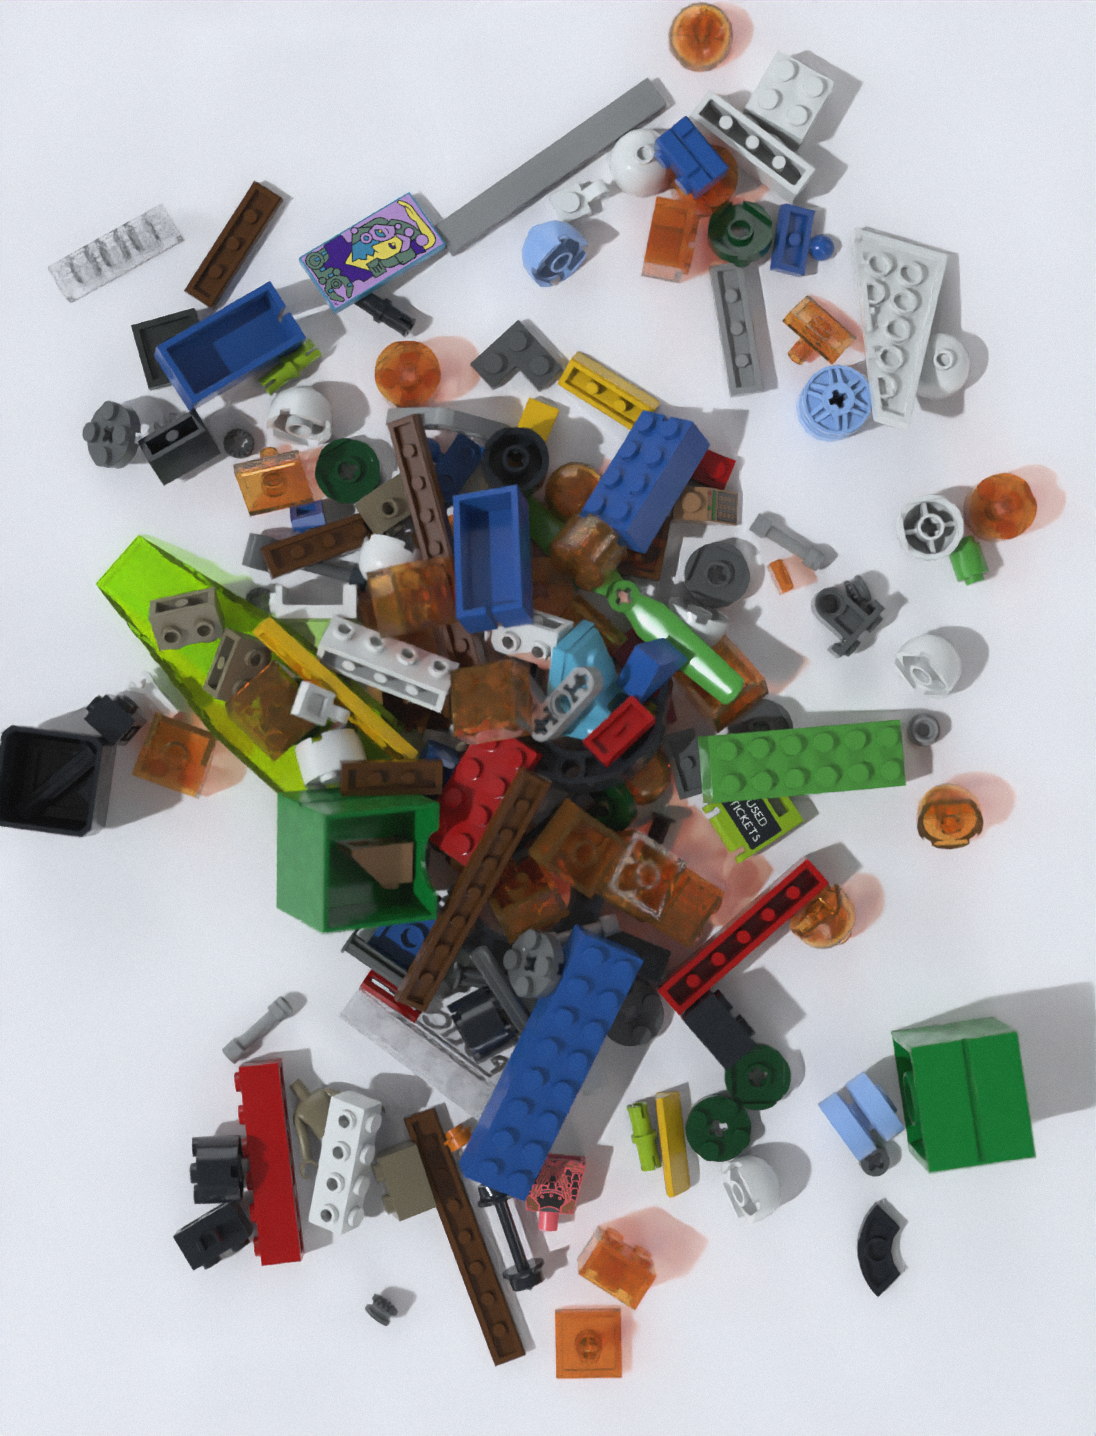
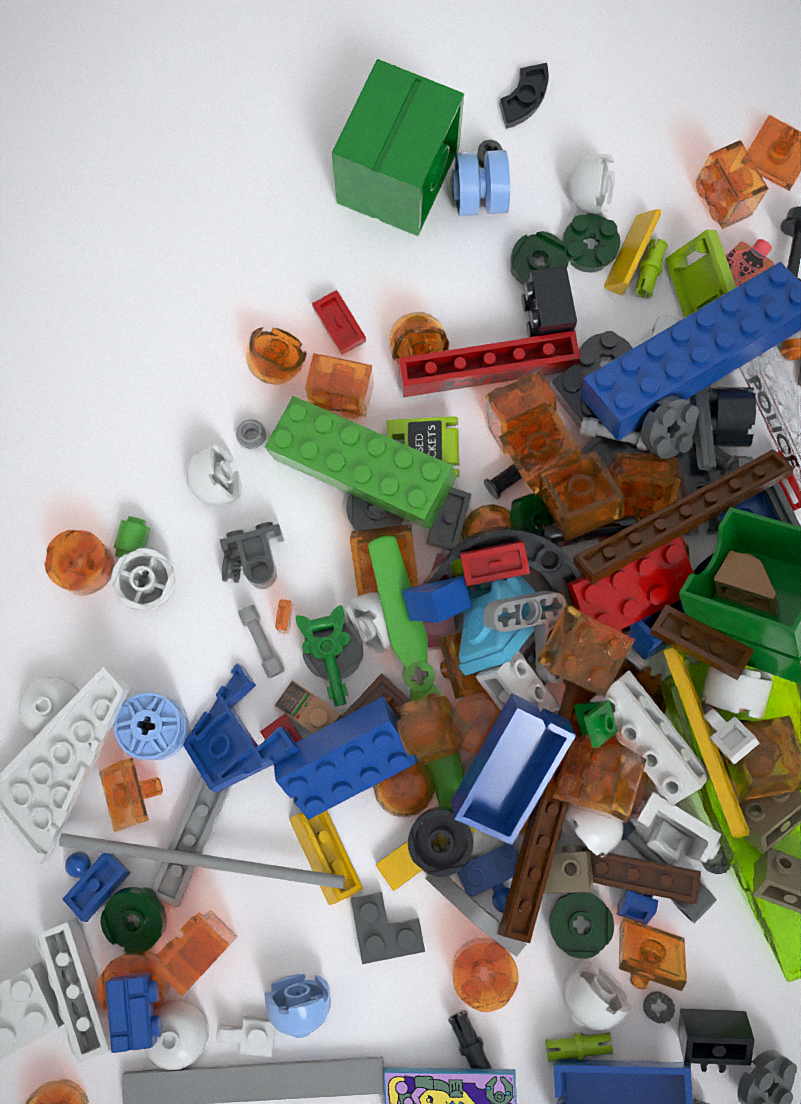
camera: 150 degrees left, 10 degrees down
(312, 588) = (667, 842): none -> white tile
(441, 643) = (598, 723): none -> green bracket
(586, 1147) = (703, 279): none -> lime container
(713, 317) = (202, 860): none -> light grey piece
(722, 571) = (327, 648): none -> green piece
(759, 427) = (224, 747): none -> blue wing
(868, 823) = (340, 385): none -> clear orange brick
(911, 891) = (339, 322): none -> red plate

